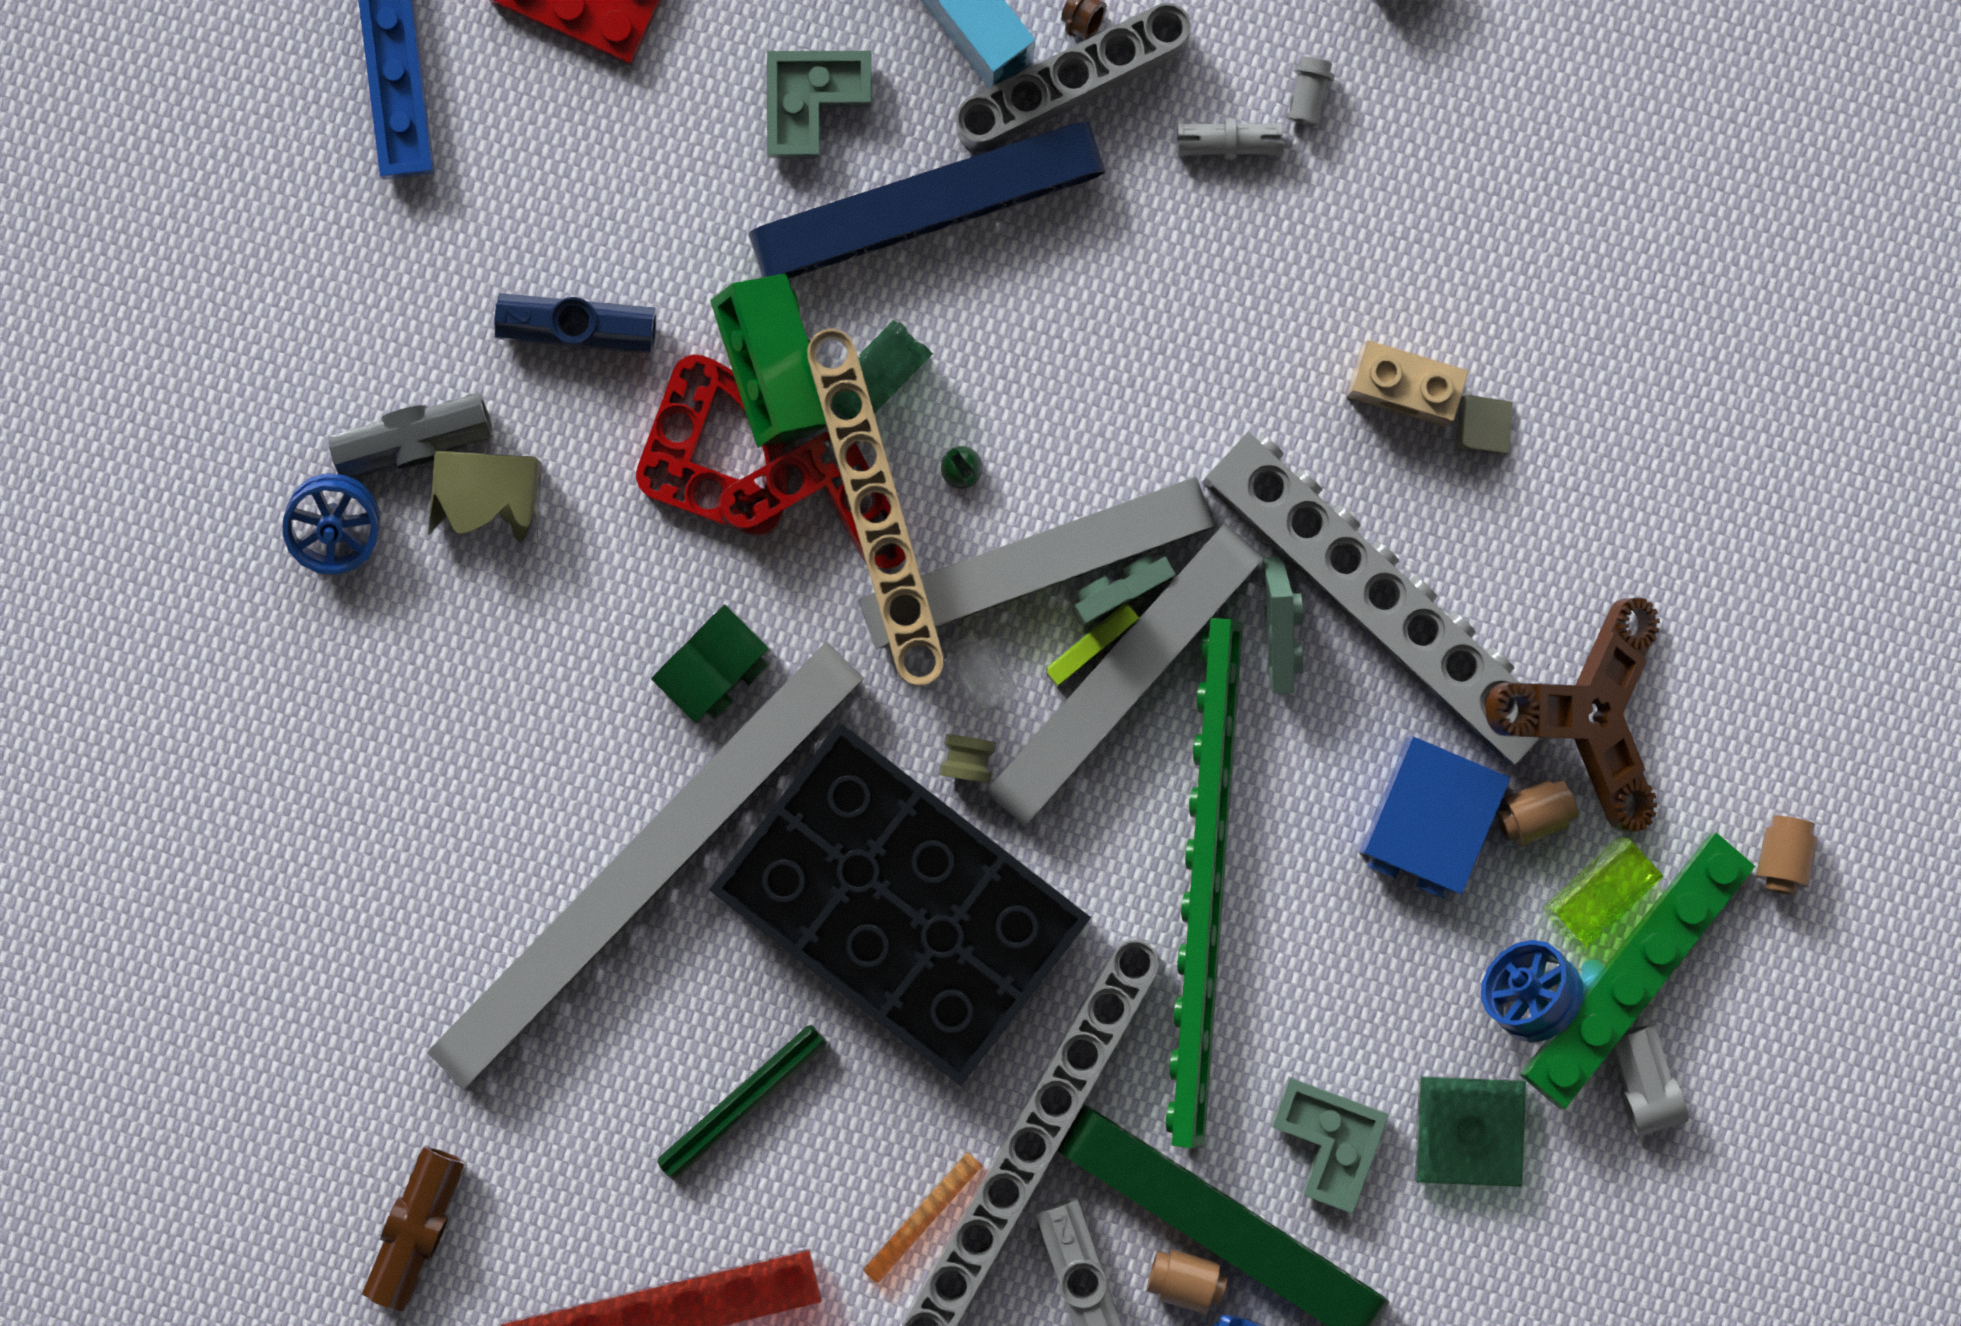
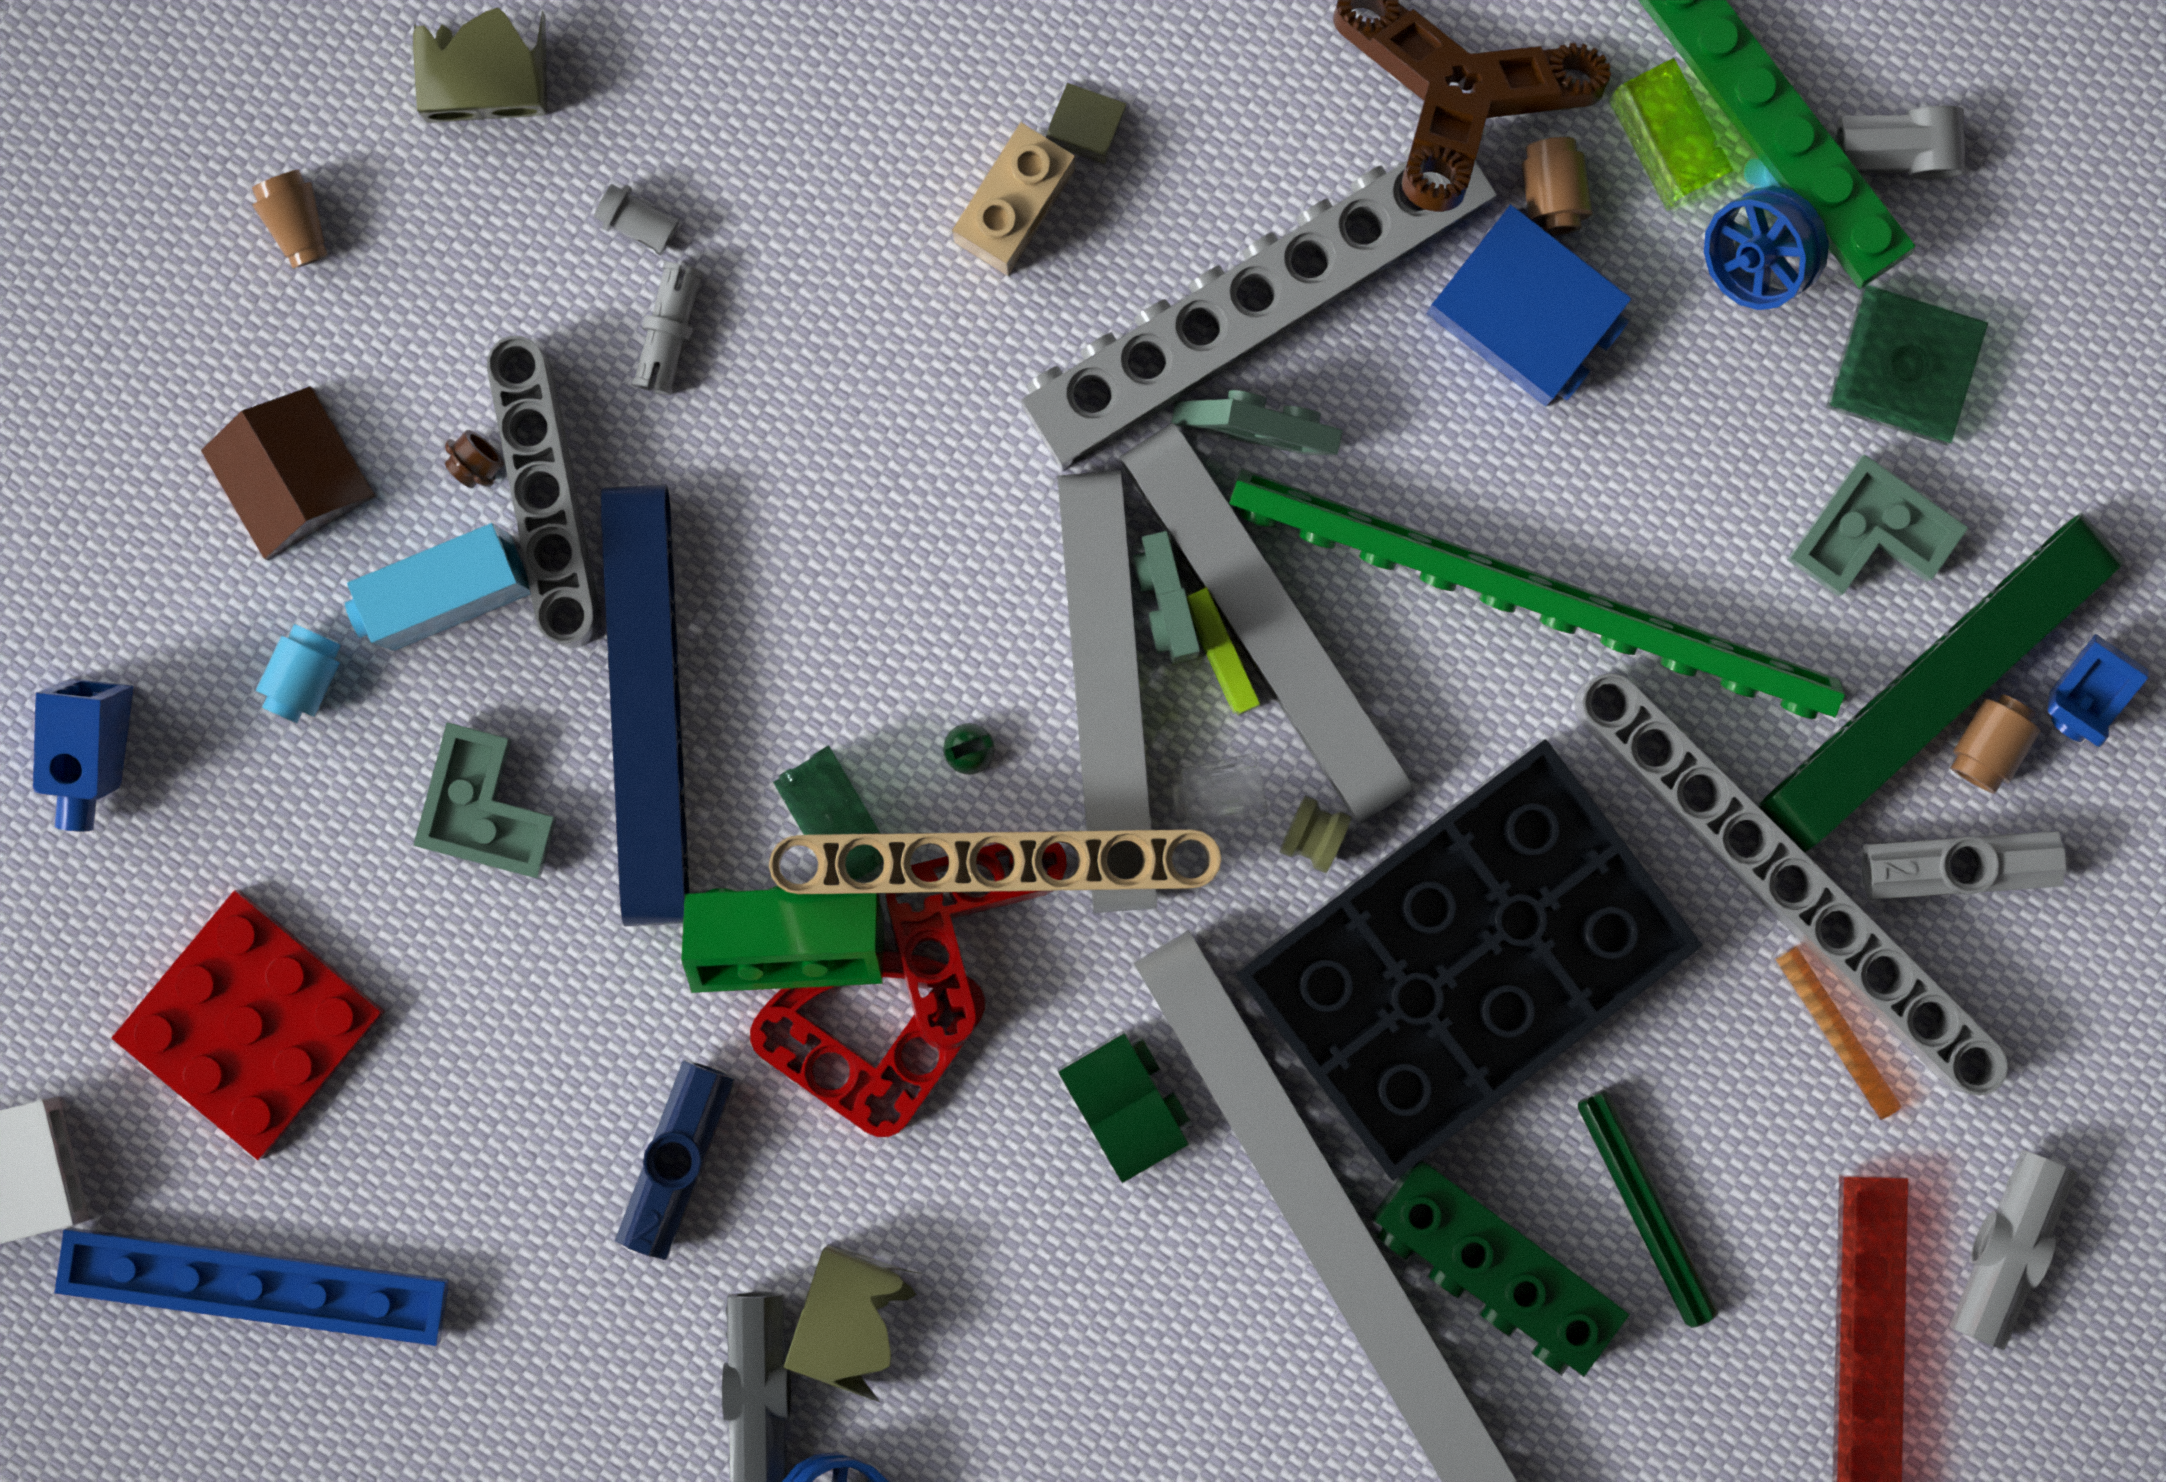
camera: 70 degrees left, 0 degrees up
(664, 995) = (1498, 1266): none -> dark green brick

